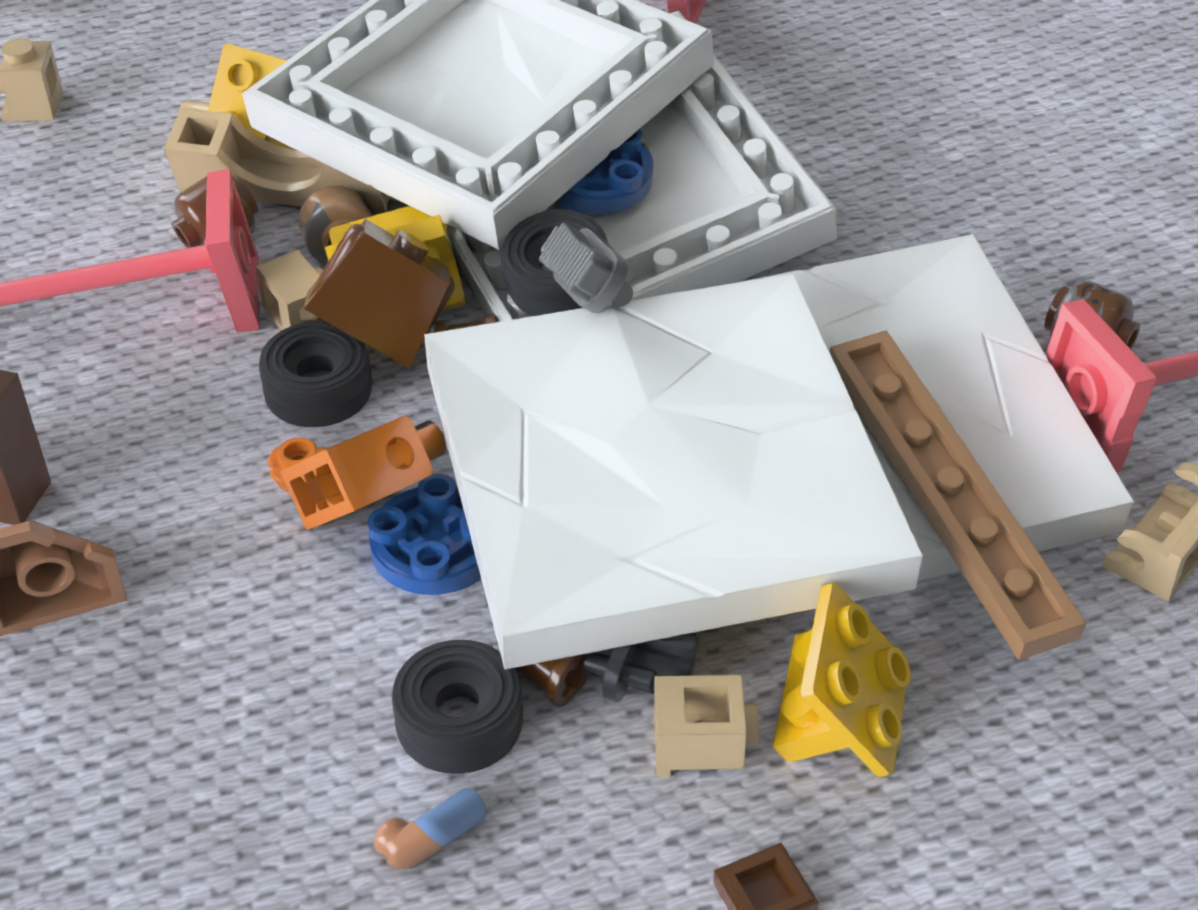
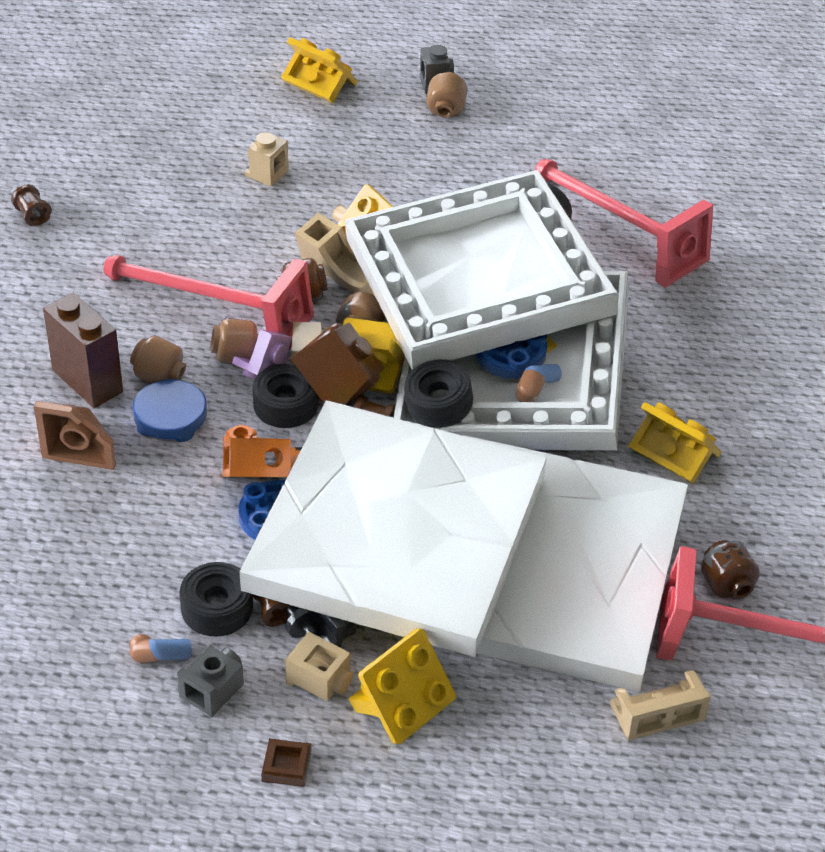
camera: 30 degrees right, 0 degrees up
(83, 410) = (157, 360): none -> medium nougat head
(153, 471) = (169, 410): none -> tile
(181, 332) = (233, 338): none -> medium nougat head
(254, 322) = (270, 350): none -> lavender bracket
(554, 830) = (211, 679): none -> dark grey brick
(587, 268) = (431, 403): dark grey piece -> none
(666, 195) = (534, 379): none -> nougat arm
(888, 198) = (673, 443): none -> yellow bracket
(957, 498) = (537, 619): medium nougat plate -> none

